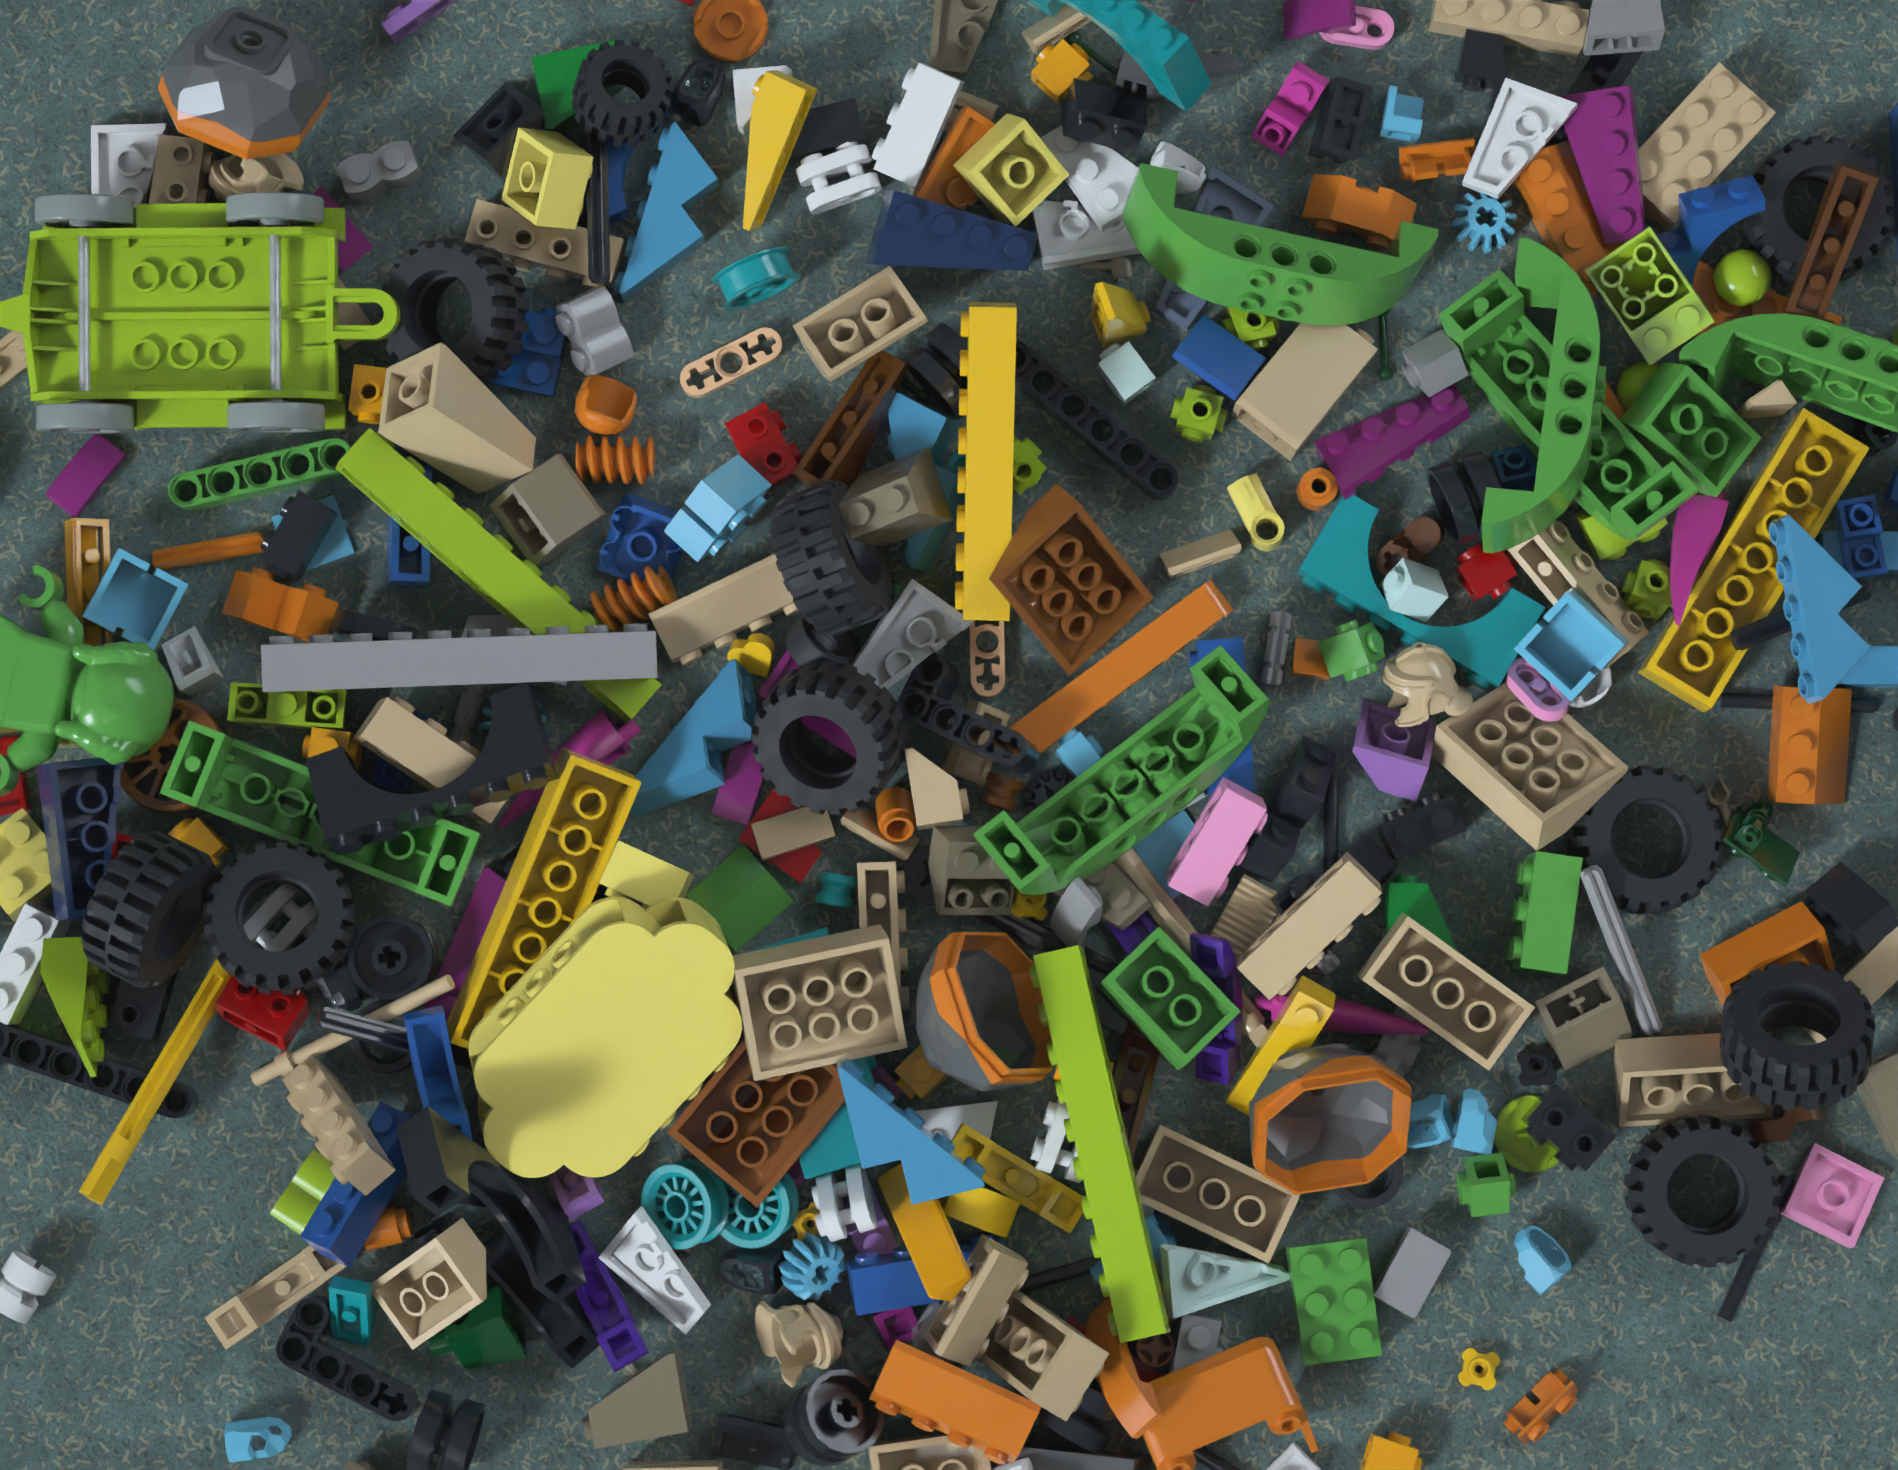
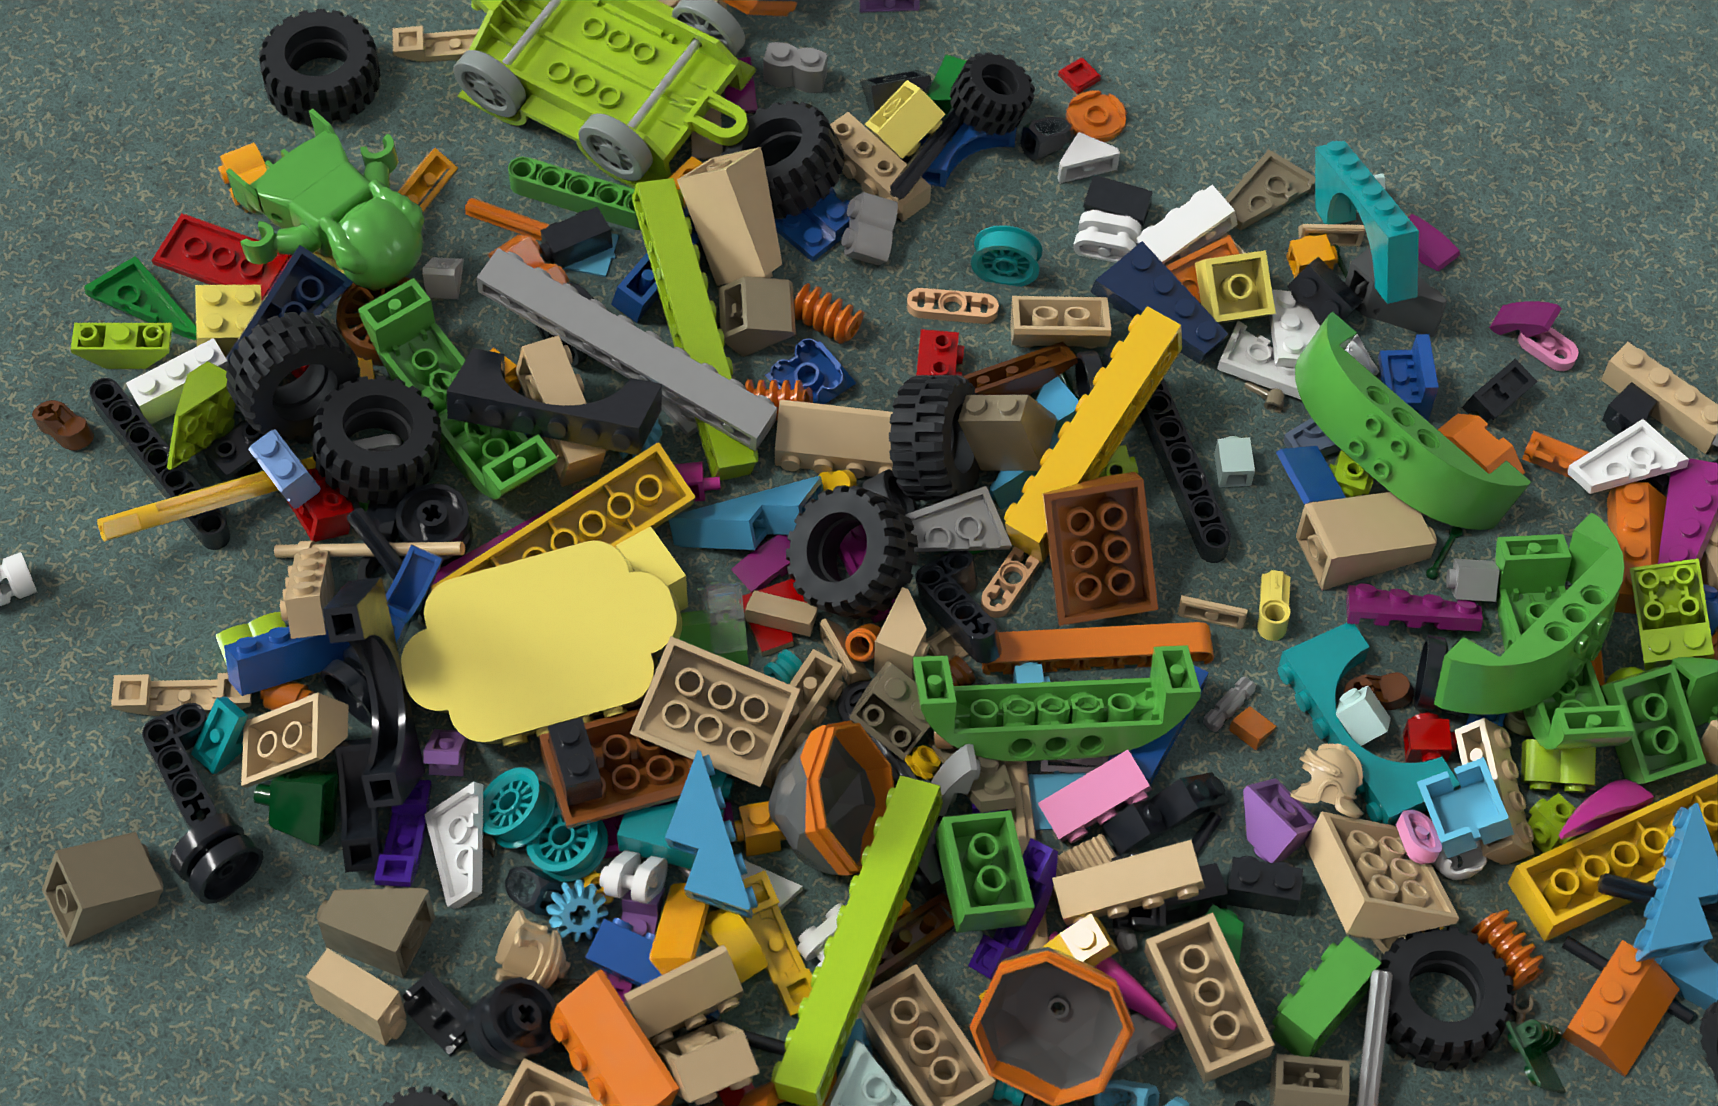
camera: 30 degrees right, 25 degrees down
(85, 474) = (457, 132): magenta slope -> none
(134, 599) = (439, 199): medium azure piece -> none
(214, 1010) = (284, 469): none -> medium blue brick
(255, 1438) = (81, 783): medium azure rock -> none
(287, 708) = (483, 328): lime slope -> none
(605, 405) = (844, 277): orange hair -> none
(665, 227) = (966, 197): dark azure slope -> none
(719, 509) = (886, 366): medium azure piece -> none
(725, 1146) = (575, 761): none -> black brick
(741, 874) = (725, 615): none -> clear bracket
(775, 124) = (1081, 176): yellow slope -> none
(1117, 314) = (1254, 407): yellow slope -> none
(1195, 427) = (1272, 514): lime brick -> none
(1246, 169) = (1411, 374): none -> blue bracket
(1290, 108) = (1473, 368): dark pink slope -> none
(1312, 500) = (1329, 610): orange brick -> none
(1352, 650) = (1288, 731): bright green brick -> none
(1401, 116) = (1545, 416): medium azure panel -> none
(1487, 235) = (1567, 509): medium azure gear -> none
(1677, 745) = (1508, 946): none -> orange piece

